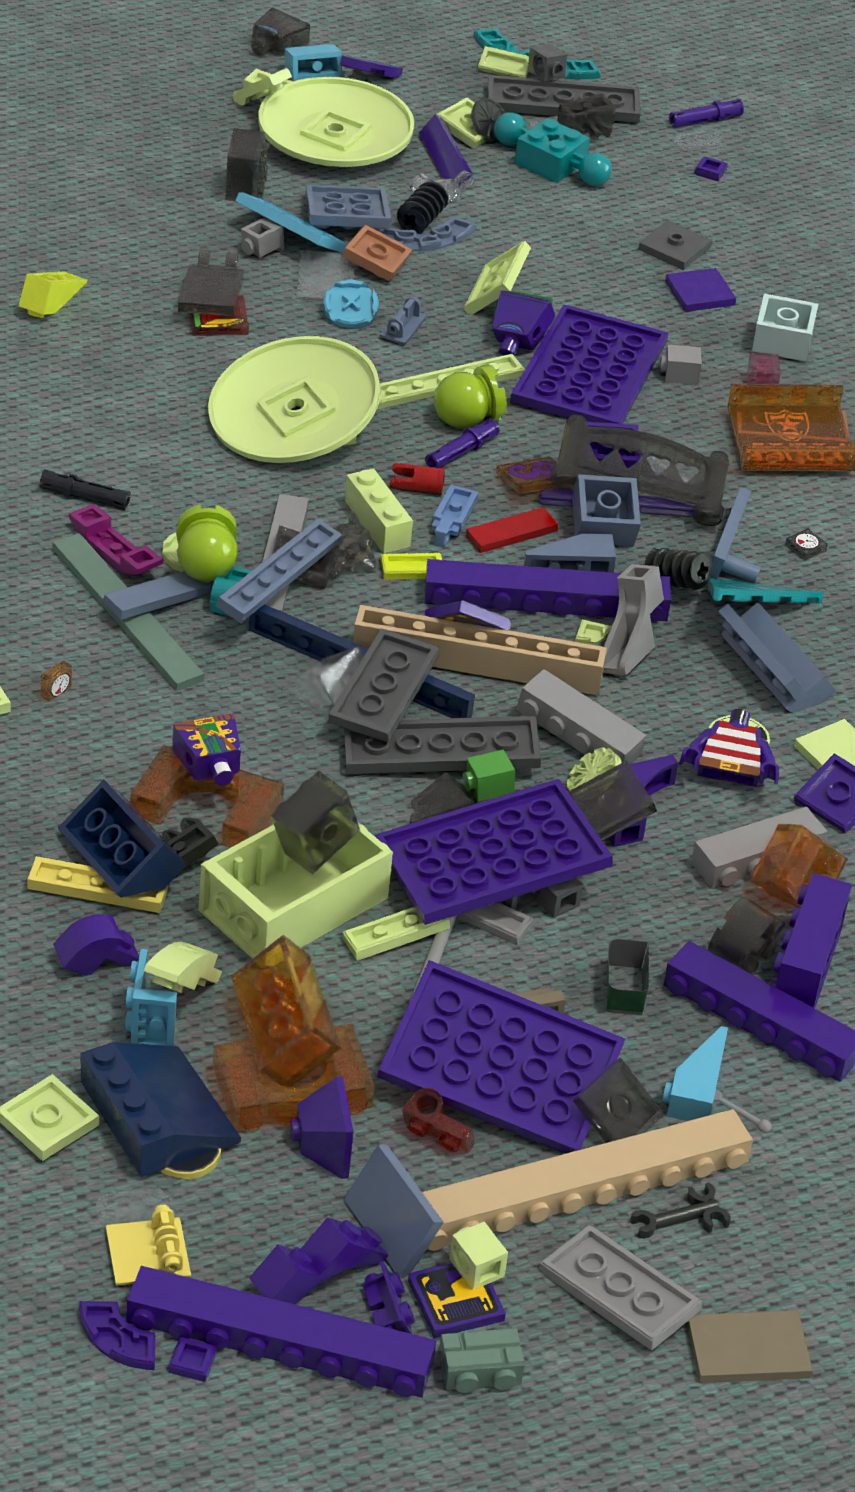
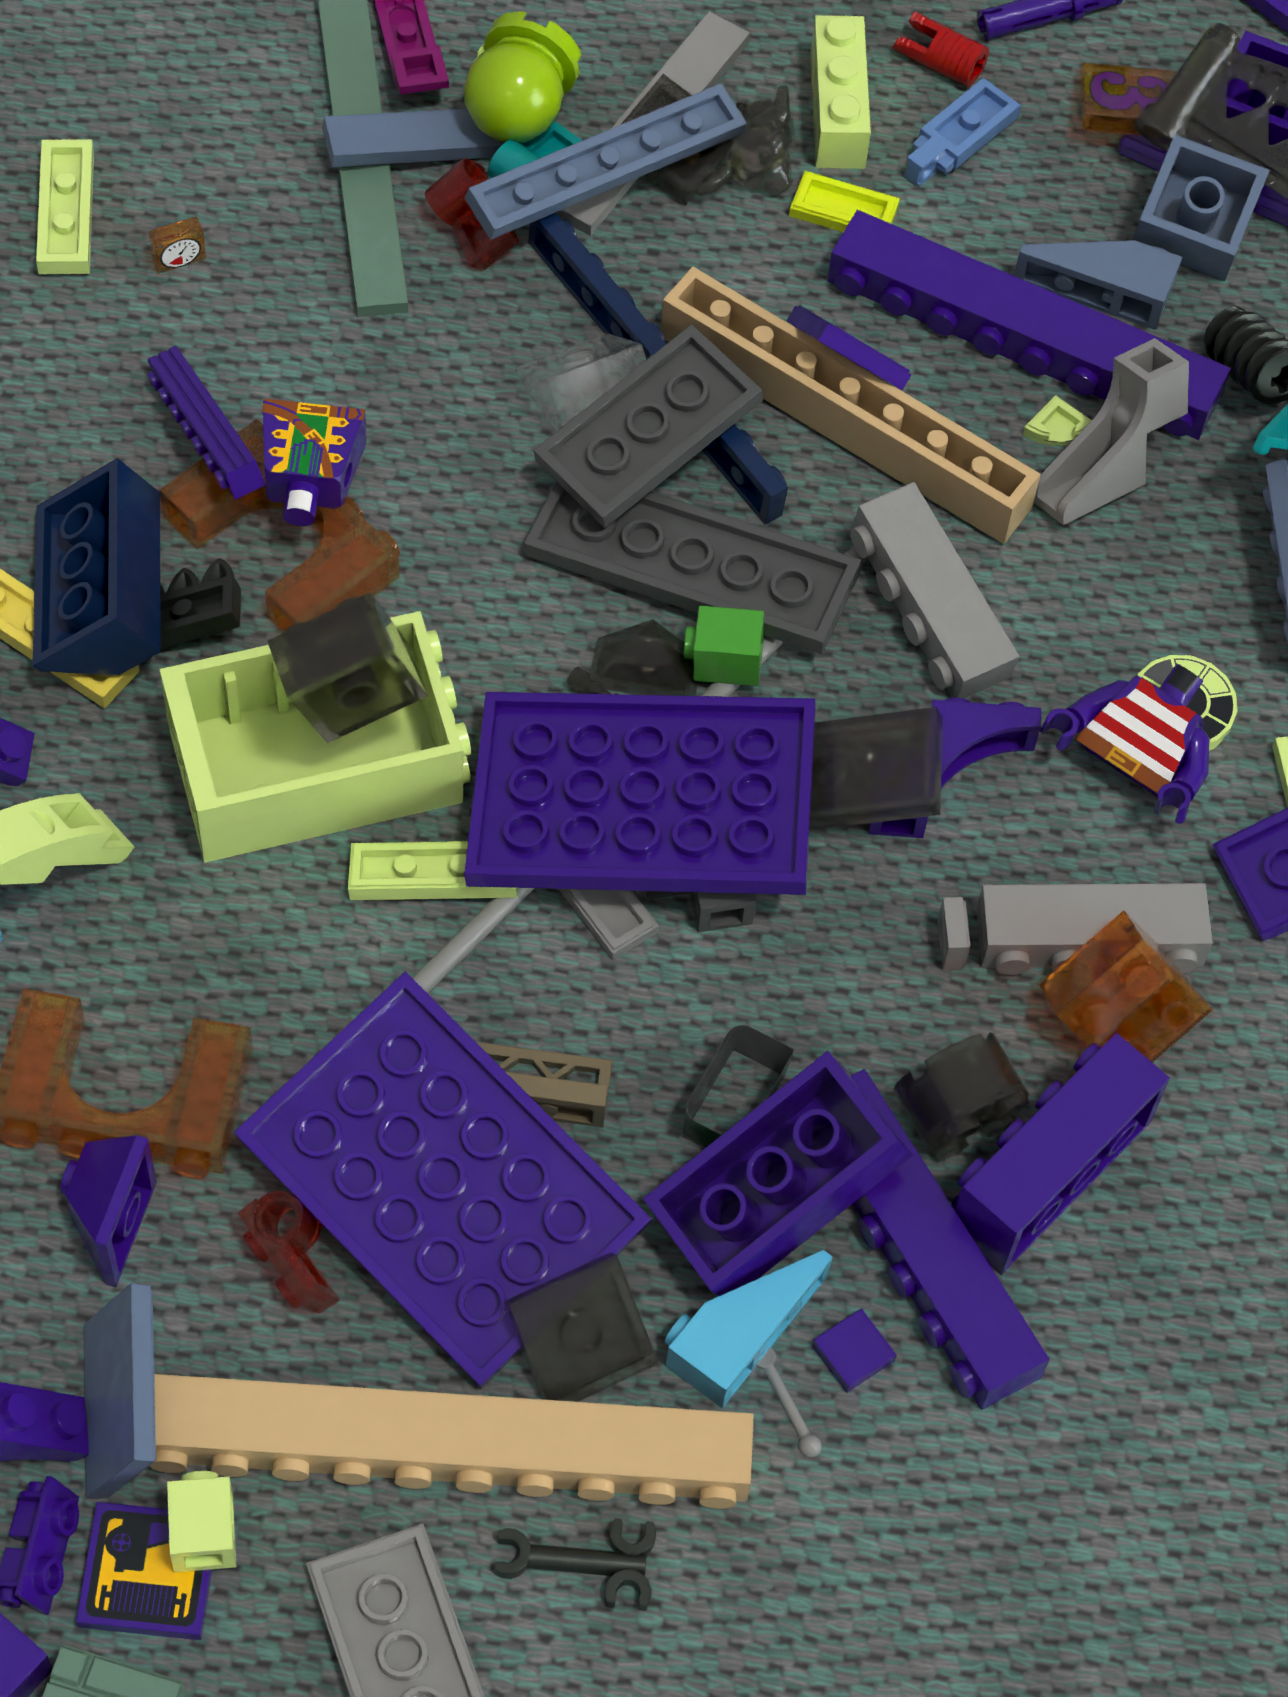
camera: 25 degrees right, 20 degrees up
(137, 753) = (204, 423): none -> dark purple piece
(213, 621) = (449, 203): none -> clear red plate
(285, 1012) = (153, 974): clear orange brick -> none
(512, 530) = (1041, 189): red tile -> none
(592, 766) = (902, 687): yellowish green wheel -> none
(680, 995) = (777, 1176): none -> dark purple brick
(690, 872) = (953, 933): none -> light grey tile
(760, 1075) = (854, 1350): none -> dark purple tile

